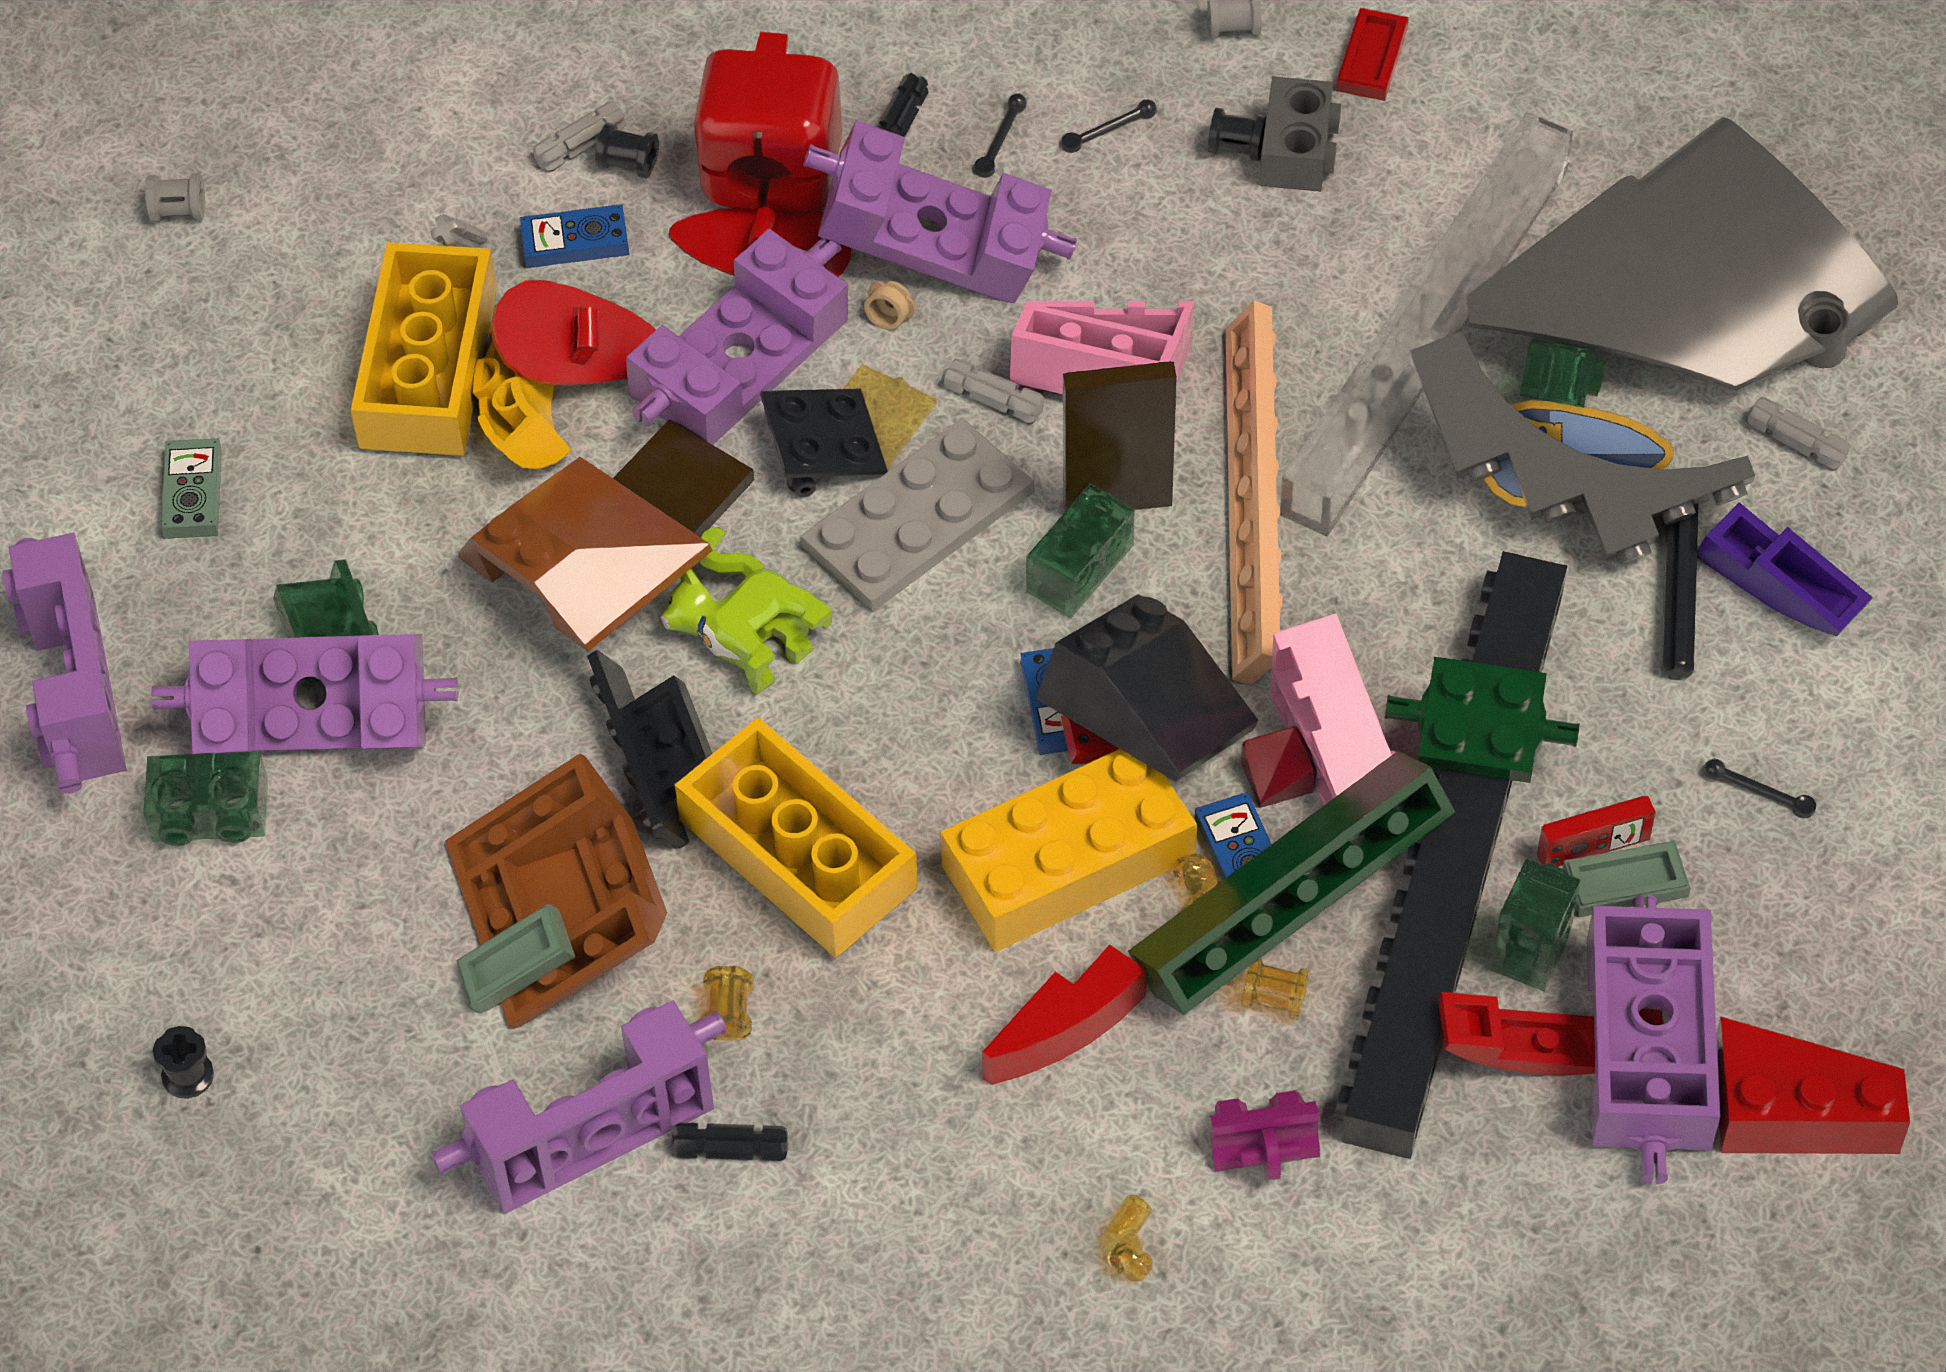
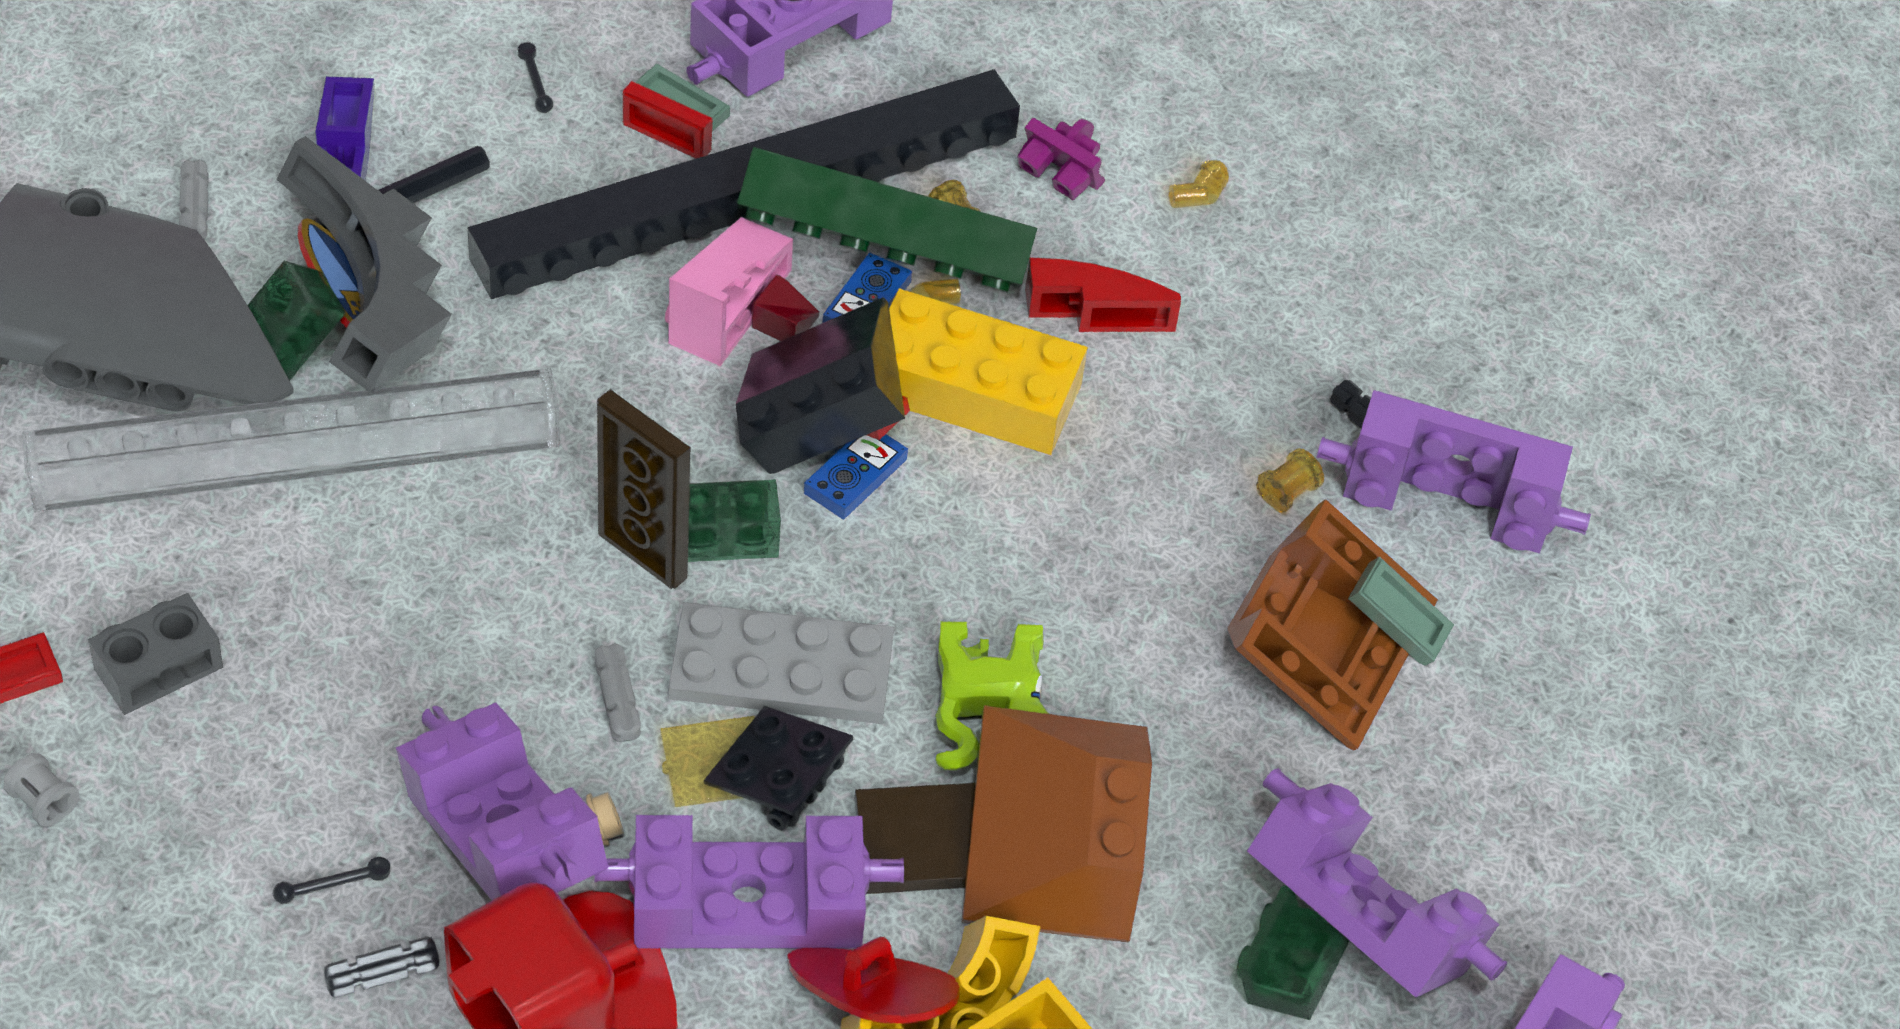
camera: 140 degrees left, 5 degrees down
(180, 1078) = (1687, 751): black bush -> none
(206, 786) = (1515, 901): clear green brick -> none
(658, 740) = (1151, 658): black bracket -> none
(797, 837) = (1139, 515): yellow brick -> none
(1073, 142) = (292, 824): black hinge -> none
(1076, 337) = (519, 617): bright pink wedge -> none
(1236, 134) = (190, 697): black bush -> none
(1252, 492) = (545, 469): light nougat plate -> none
(1482, 719) = (657, 189): dark green plate -> none
(1521, 1039) = (853, 73): red slope -> none
(1535, 924) = (781, 87): clear green brick -> none

